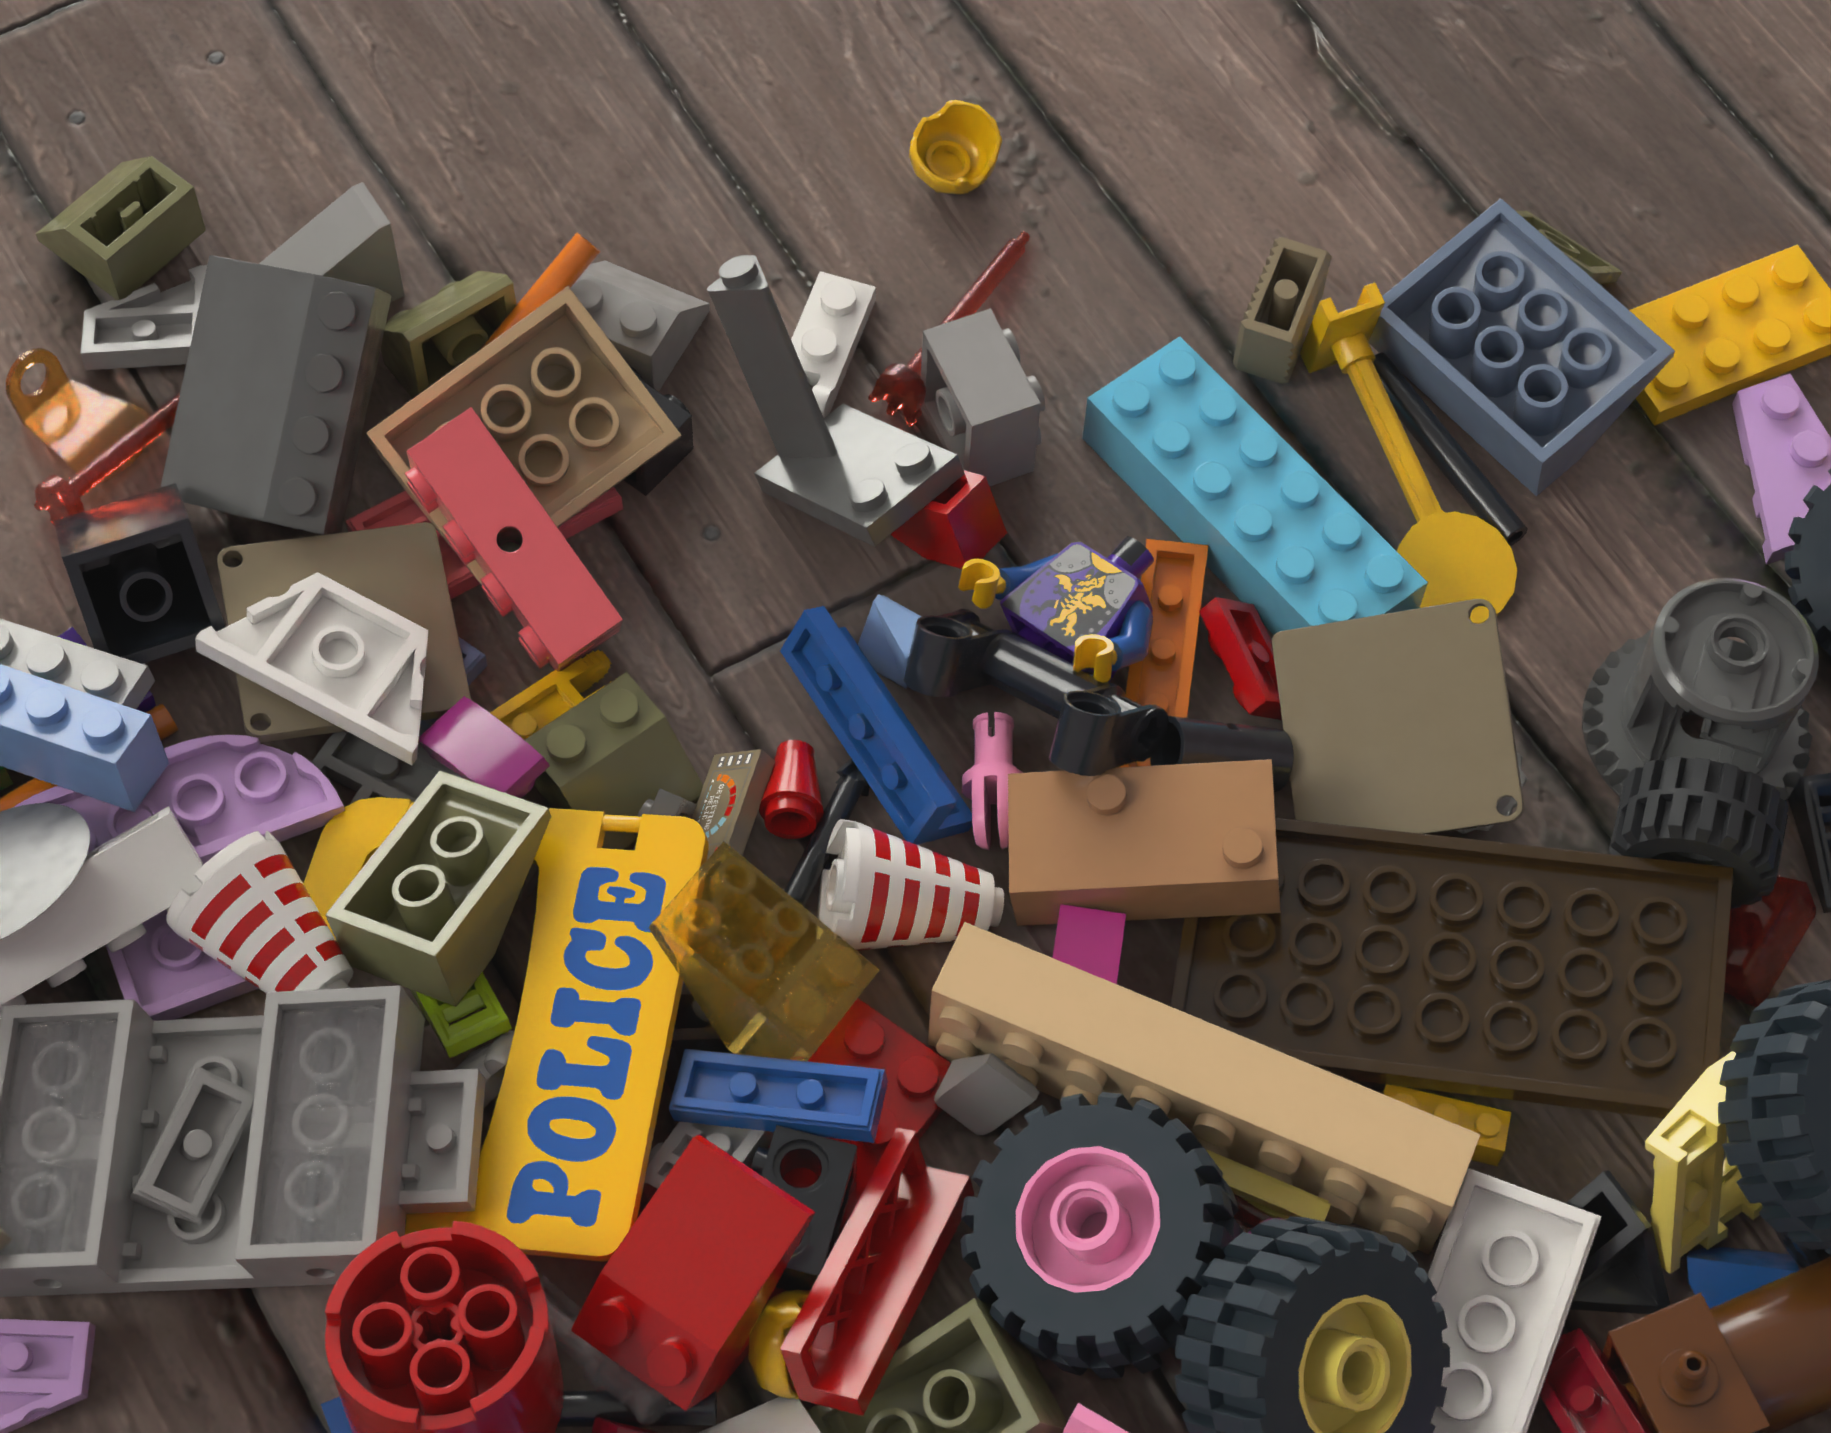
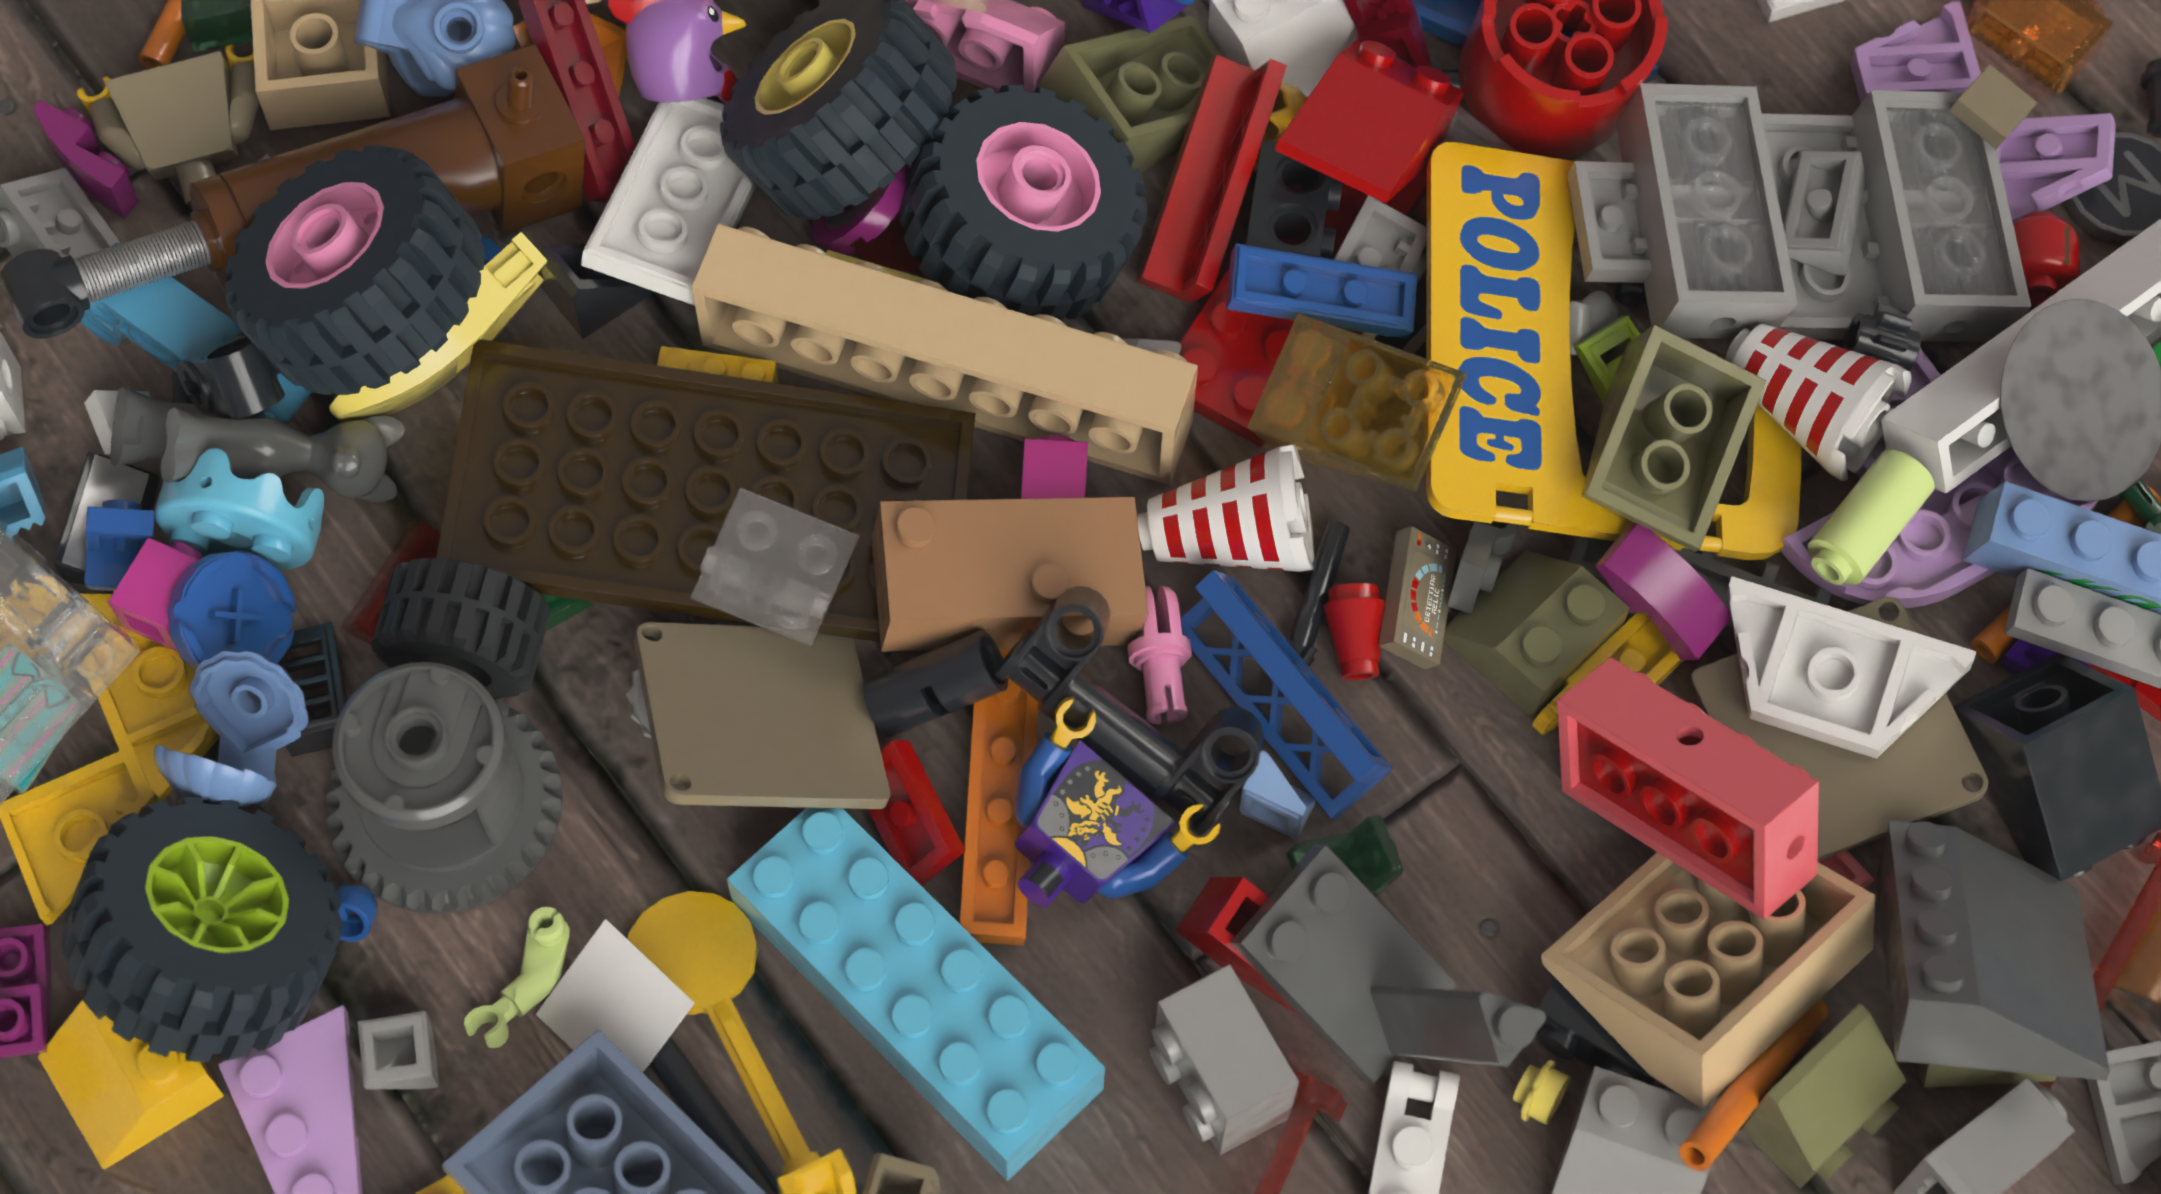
camera: 175 degrees right, 5 degrees up
(179, 986) = (1884, 336): none -> black gear
(256, 788) = (1870, 518): none -> yellowish green brick
(695, 380) = (1541, 1092): none -> light yellow plate
(840, 573) = (1364, 851): none -> clear green bracket
(1382, 865) = (774, 567): none -> clear hinge
(1524, 519) = (619, 994): none -> white sticker
(1594, 566) = (539, 975): none -> yellowish green arm
(1717, 508) = (398, 1052): none -> light grey slope

